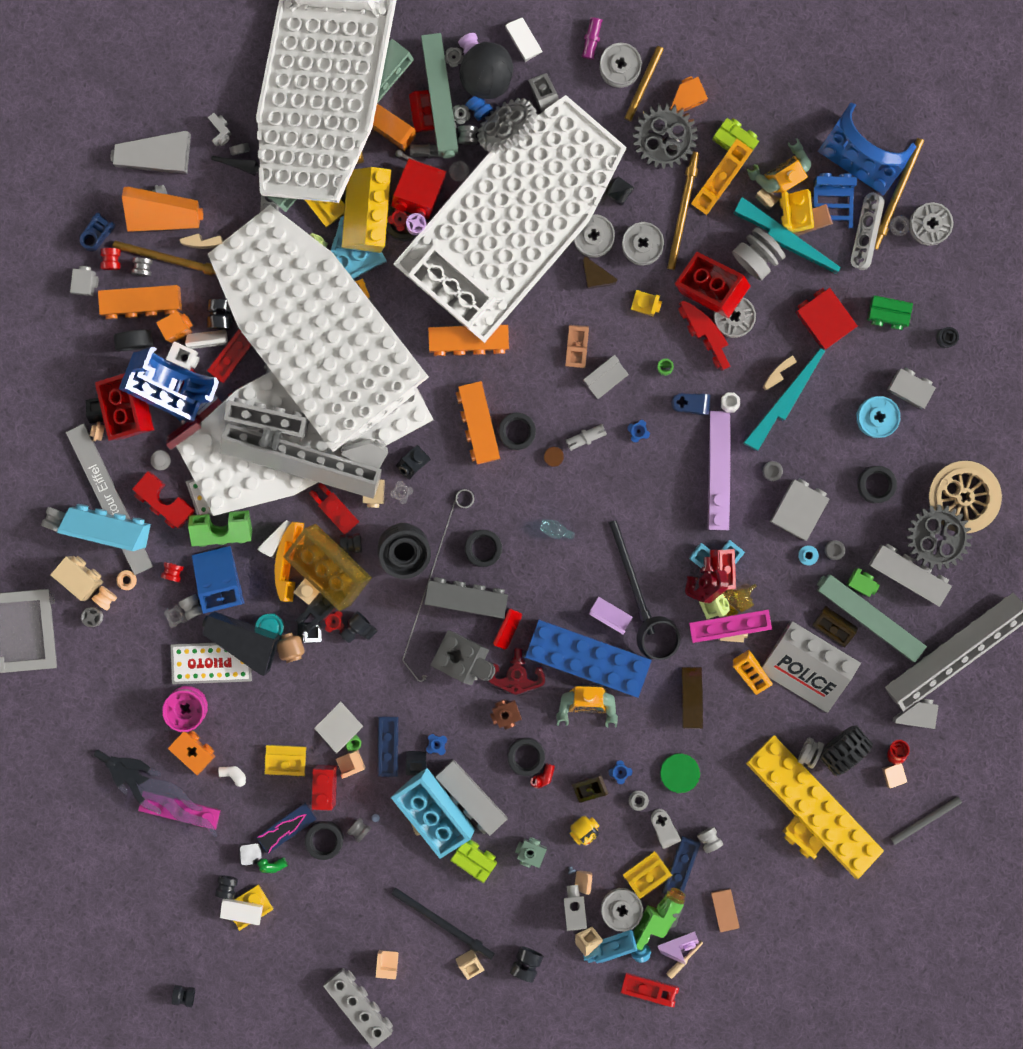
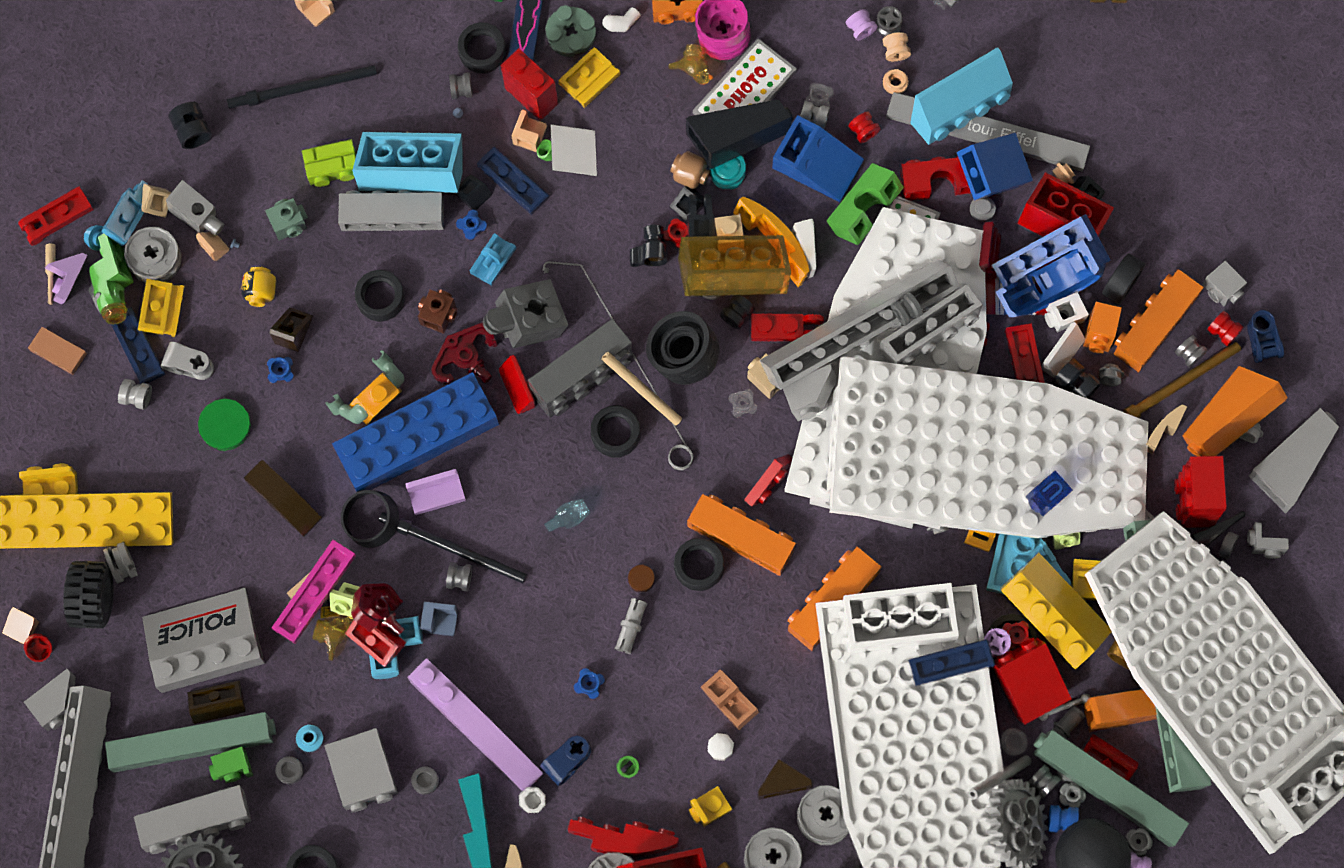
camera: 140 degrees right, 15 degrees down
(53, 519) = (1016, 65): light grey wheel -> none
(77, 577) = (938, 35): tan brick -> none
(108, 631) = (861, 24): none -> lavender wheel
(131, 472) = (994, 166): none -> blue brick
(196, 300) = (1110, 375): none -> dark grey plate
(222, 705) = (694, 64): none -> clear yellow animal
(226, 186) = (1201, 492): none -> red brick
(272, 789) = (570, 17): none -> sand green plate
(306, 266) = (1048, 493): none -> clear blue brick
(412, 462) = (761, 439): black bracket -> none
(429, 434) = (773, 475): none -> wing
(447, 711) = (492, 259): none -> dark azure hips
(448, 553) = (641, 388): none -> tan piece
(451, 237) = (951, 662): none -> dark blue tile
(469, 964) = (241, 77): tan slope -> none
(511, 157) = (999, 777): none -> light grey piece
(543, 779) = (343, 294): red arm -> none
(605, 377) = (672, 700): light grey panel -> none
(607, 327) = (720, 747): none -> white tile
(641, 806) = (237, 355): light grey plate -> none
(645, 557) = (459, 576): none -> flat silver wheel
(679, 546) = (439, 619): none -> sand blue panel
(752, 662) = (266, 585): light orange slope -> none

